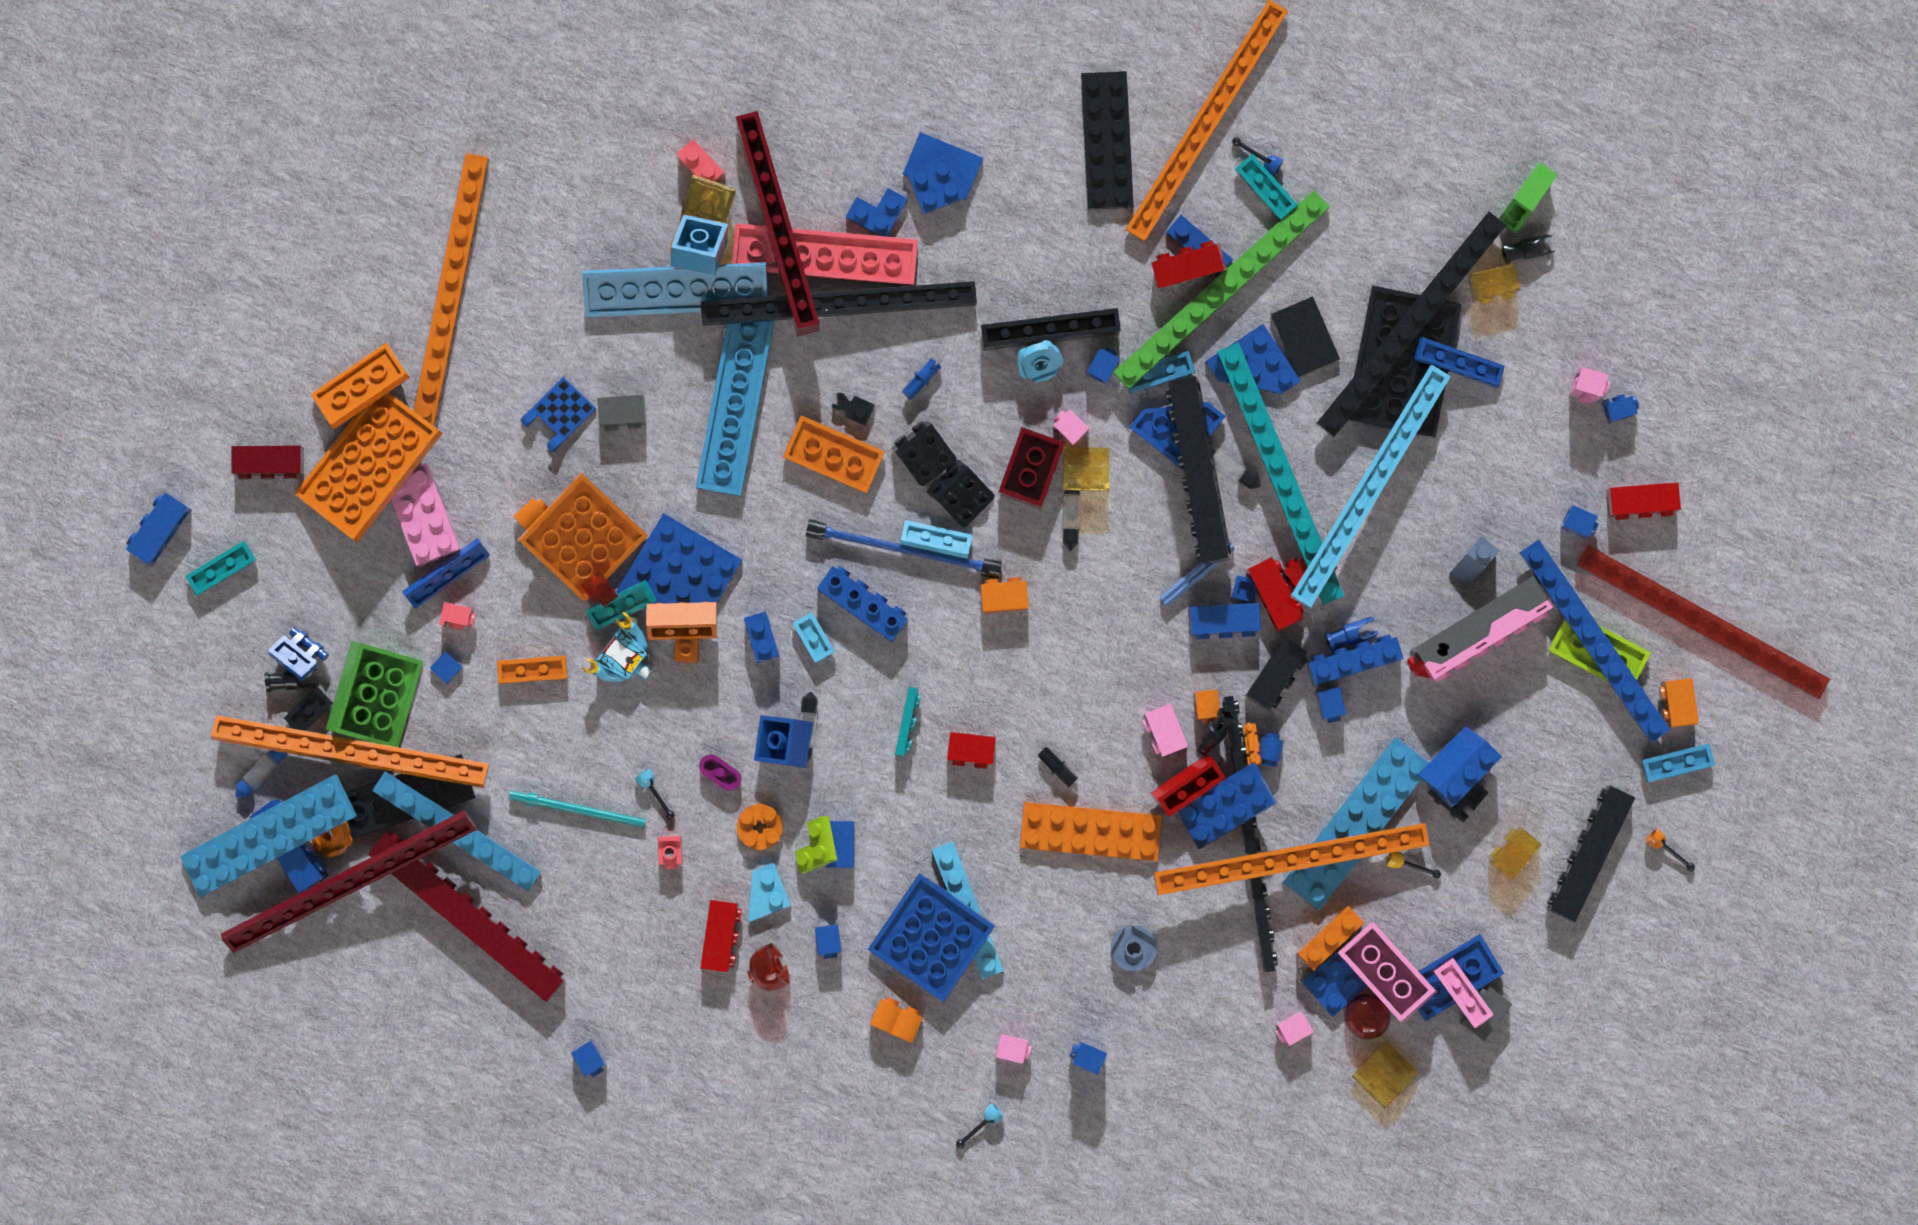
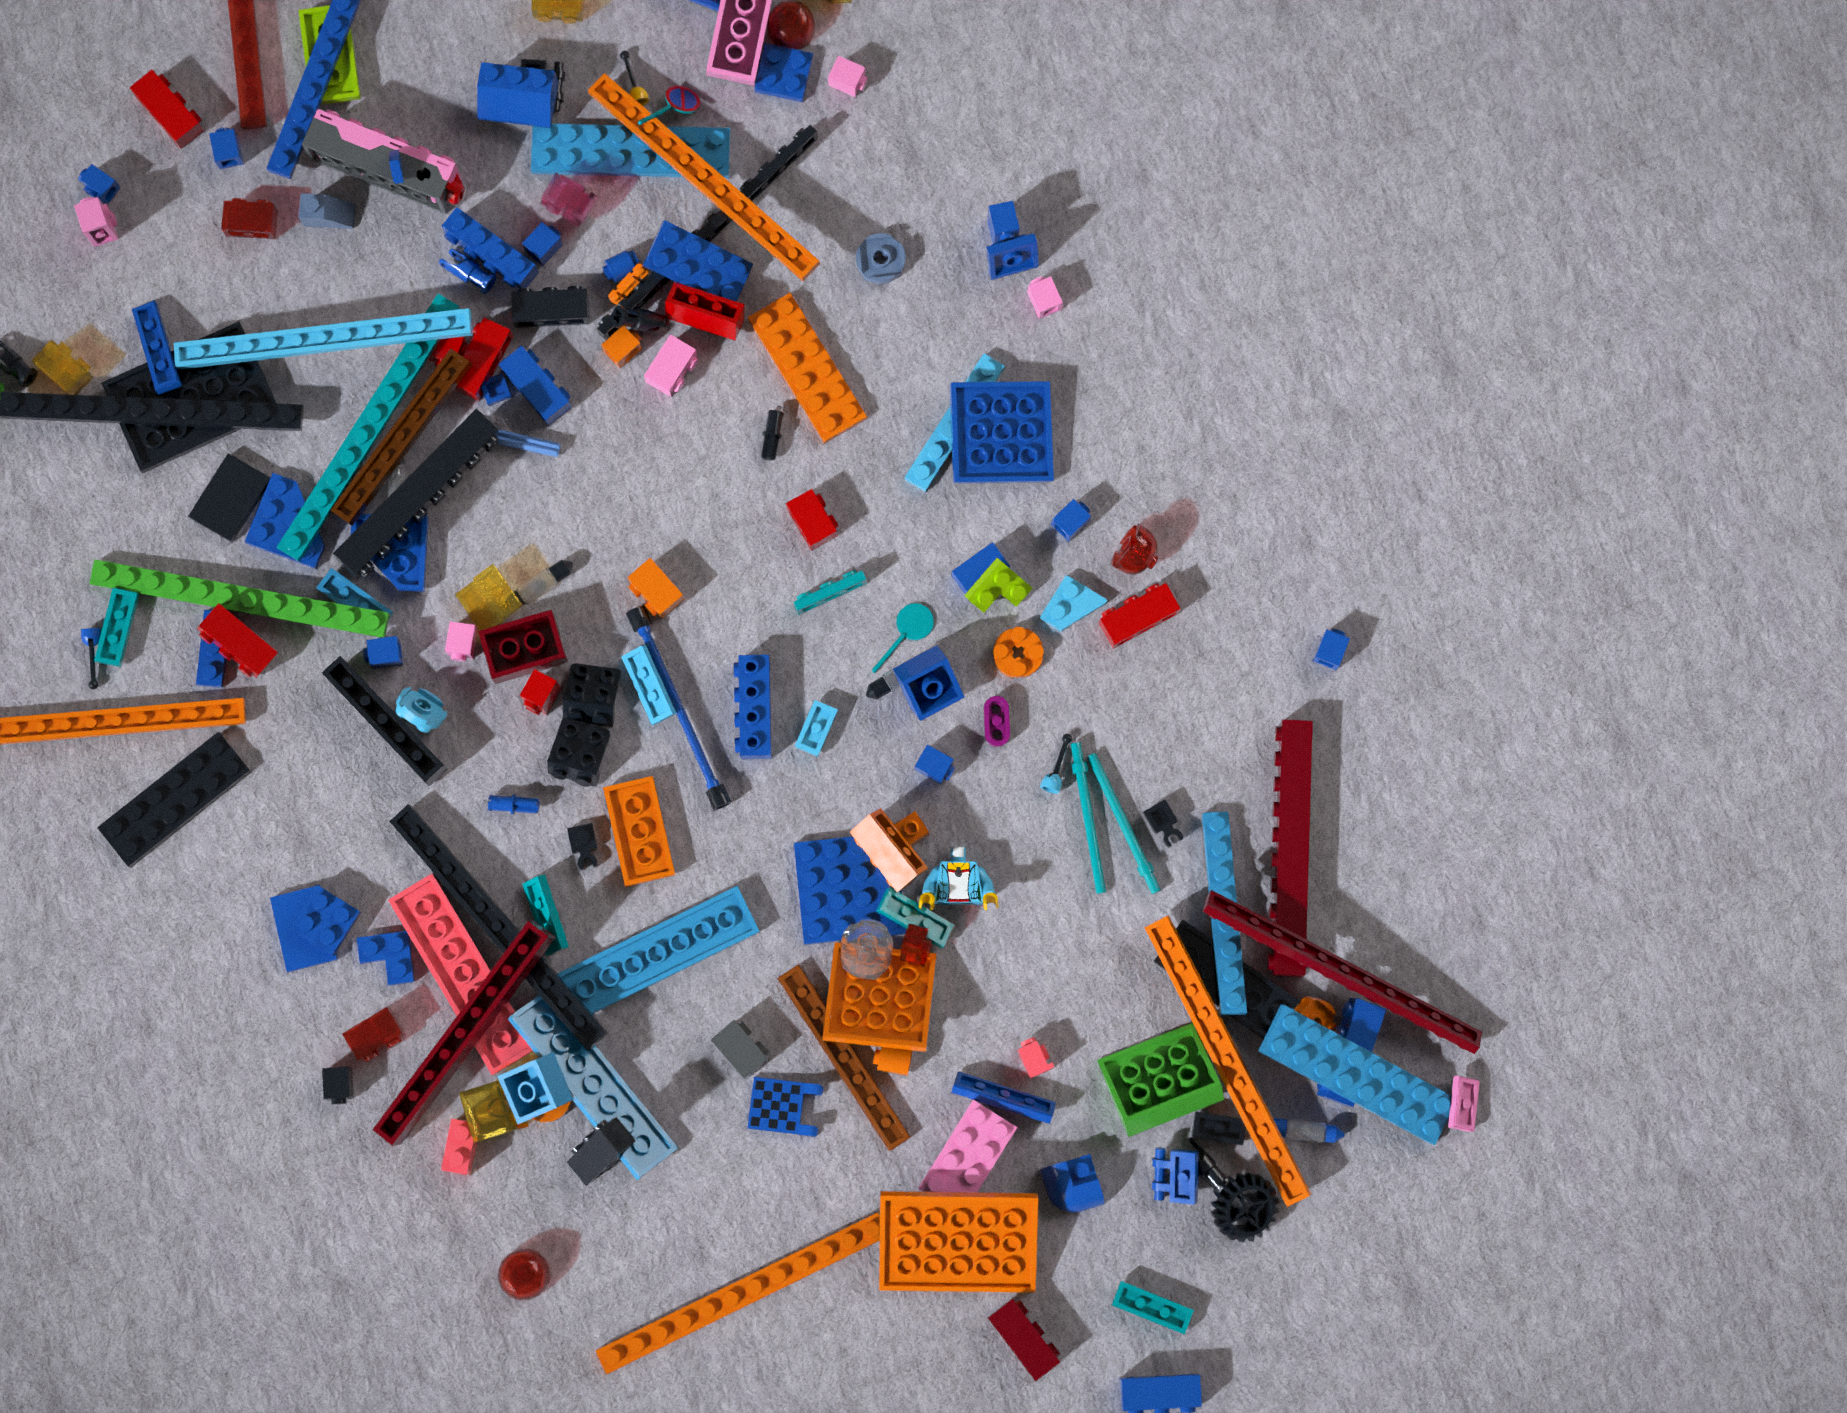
camera: 125 degrees left, 5 degrees down
(192, 899) = (1463, 1104): none -> bright pink plate
(233, 698) = (1232, 1208): none -> black gear
(348, 577) = (1073, 1185): none -> blue brick
(360, 385) = (892, 1305): orange plate -> none
(446, 667) = (1087, 1034): blue tile -> none
(532, 669) = (1031, 955): orange plate -> none
(558, 480) = (845, 1060): none -> dark orange tile
(558, 838) = (1161, 819): none -> black plate
(579, 146) = (524, 1274): none -> clear red cylinder
(621, 259) = (600, 1150): none -> black brick
(634, 551) = (859, 960): none -> clear brick
(640, 806) = (1080, 769): none -> teal bar
(673, 842) = (1094, 721): coral brick -> none
(721, 703) = (935, 765): none -> blue brick
(761, 637) = (850, 772): blue brick -> none
(810, 111) = (338, 1084): none -> black brick
(825, 345) = (545, 912): none -> teal plate
(827, 161) = (374, 1035): none -> clear red brick
(839, 767) = (913, 623): none -> teal piece
(896, 1020) = (1095, 411): orange brick -> none
(986, 455) = (540, 693): none -> red brick
(991, 1115) = (1114, 274): hinge -> none
(1059, 1045) = (1012, 256): none -> blue plate
(1254, 491) = (401, 437): none -> reddish brown plate
(1330, 938) = (746, 101): orange brick -> none
(1349, 747) = (568, 198): none -> clear pink brick
(1367, 889) = (679, 99): none -> piece
(1462, 632) = (396, 166): none -> blue tile
(1510, 501) = (249, 219): none -> clear red brick

